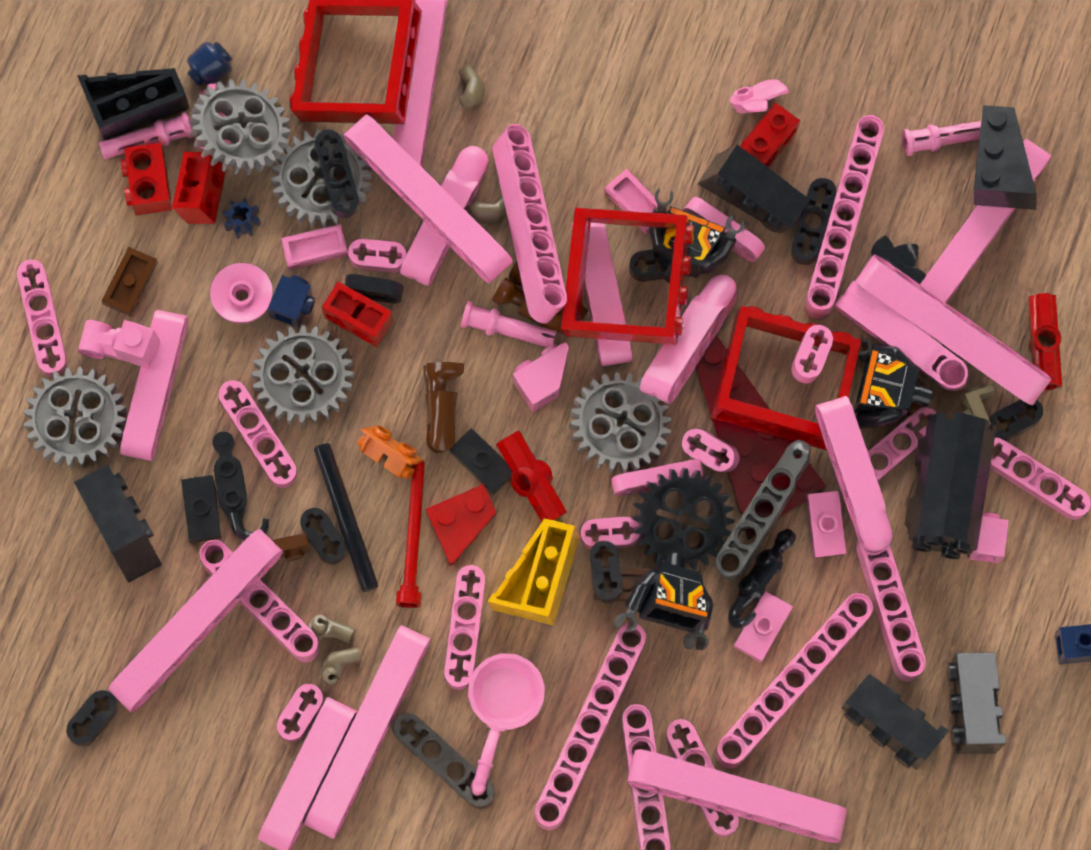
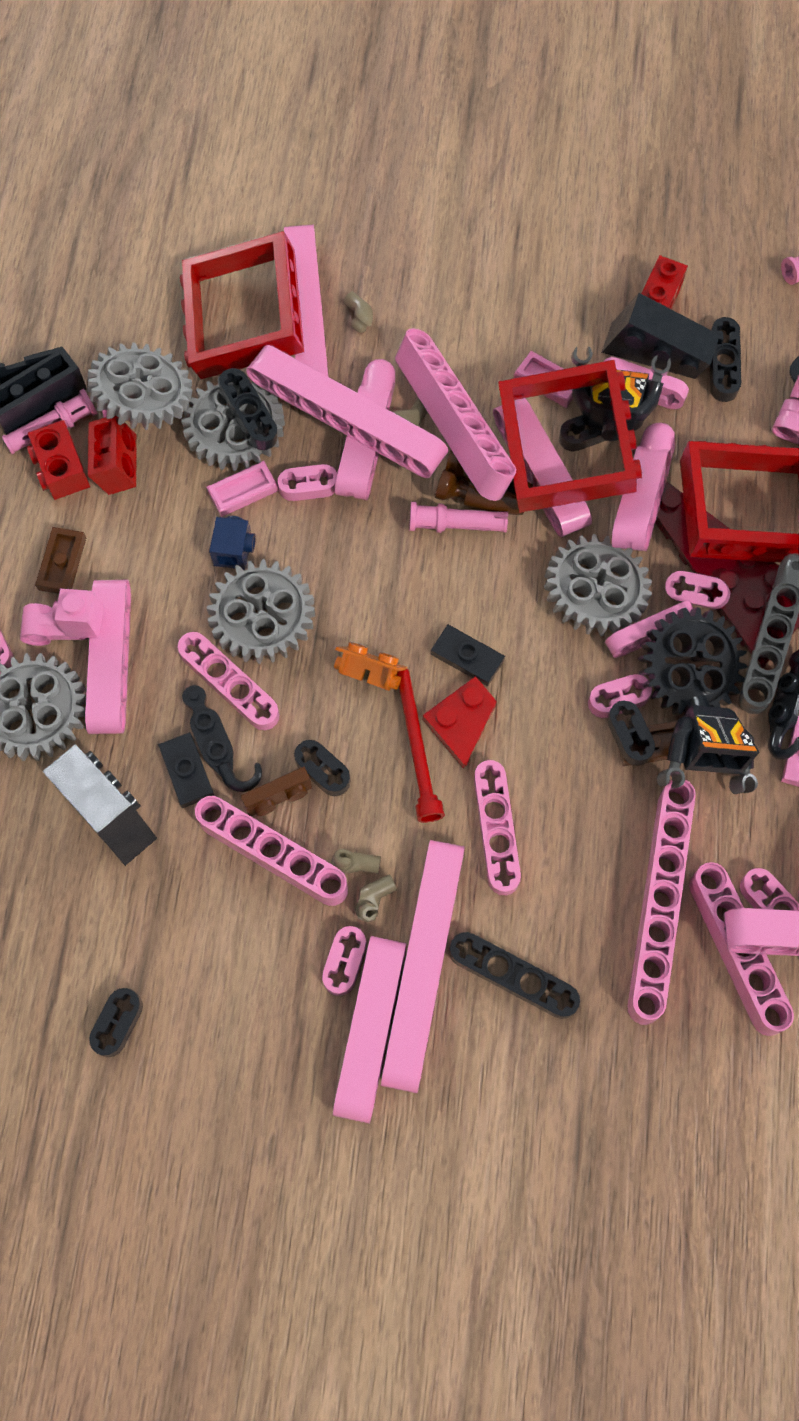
camera: 10 degrees left, 5 degrees down
(195, 620) = (206, 887): bright pink beam -> none
(209, 64) = (96, 339): dark blue head -> none
(238, 279) = (175, 534): bright pink dish -> none
(243, 209) = (162, 475): dark blue gear -> none
(346, 517) = (342, 744): black axle -> none
(357, 314) = (302, 538): red brick -> none
(375, 288) = (312, 512): black beam -> none
(441, 404) = (411, 604): reddish brown piece -> none
(504, 695) = (563, 888): bright pink piece -> none
(531, 477) = (525, 657): red piece -> none
(540, 575) = (562, 755): yellow wedge -> none
(542, 379) = (506, 560): bright pink slope -> none
(756, 98) = (631, 263): bright pink plate -> none
(805, 351) = (768, 468): bright pink beam -> none
(851, 204) = (757, 355): bright pink beam -> none

